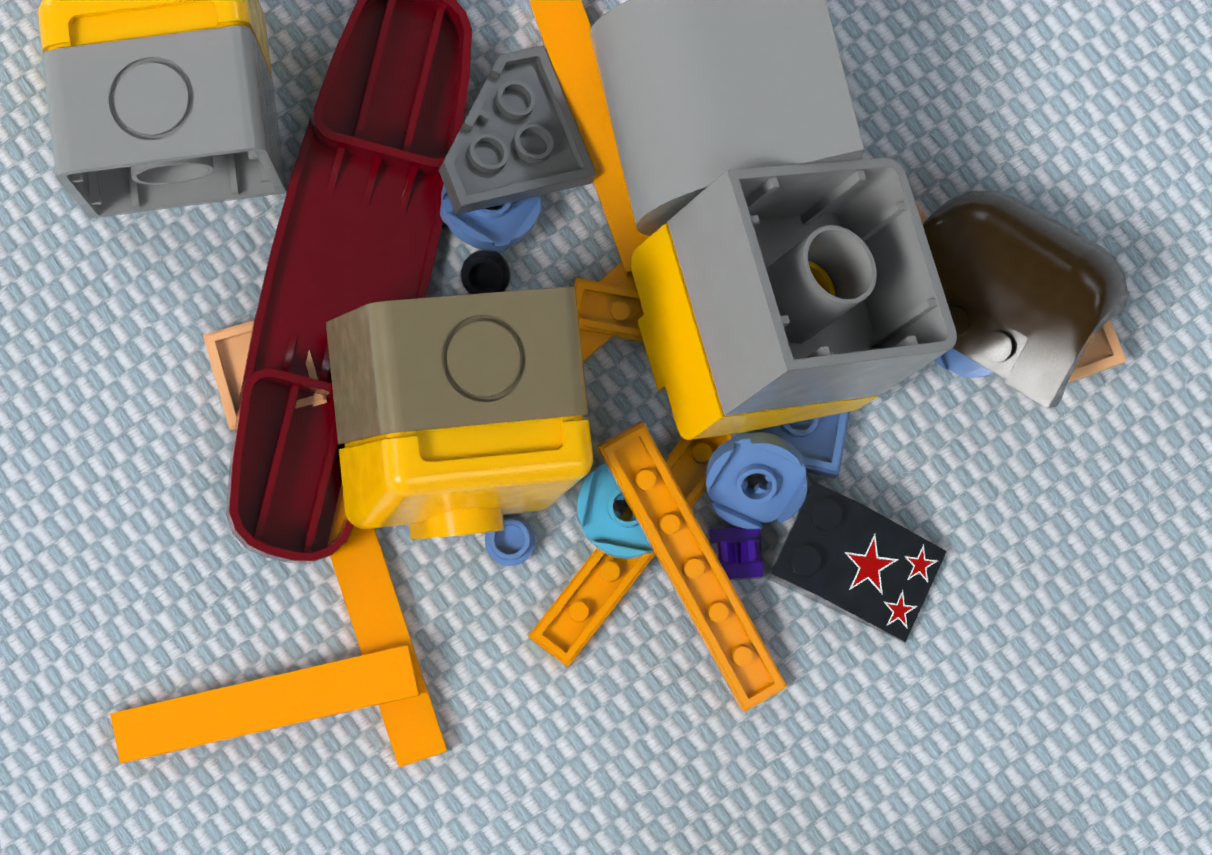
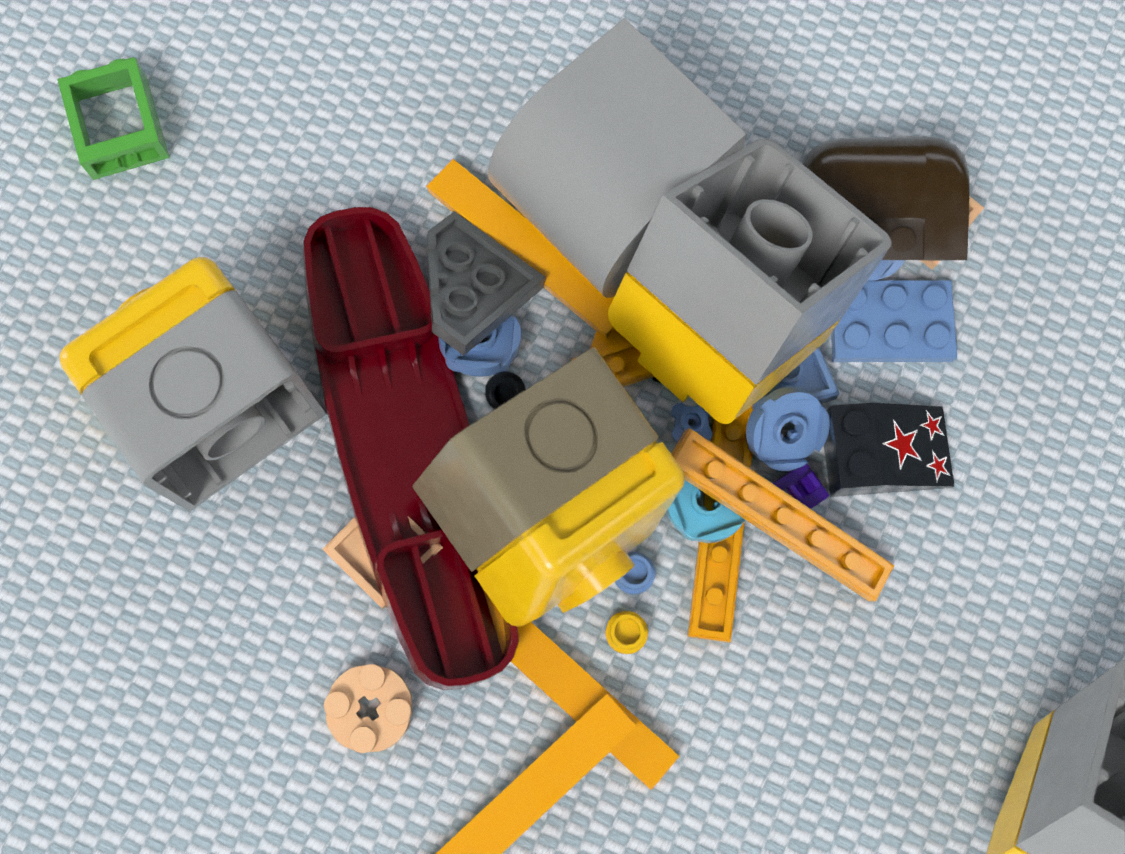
camera: 30 degrees left, 5 degrees down
(138, 507) = (344, 704): none -> light nougat plate
(466, 596) = (626, 632): none -> yellow plate
(664, 431) = (683, 414): none -> medium blue plate
(952, 432) = (898, 324): none -> medium blue plate

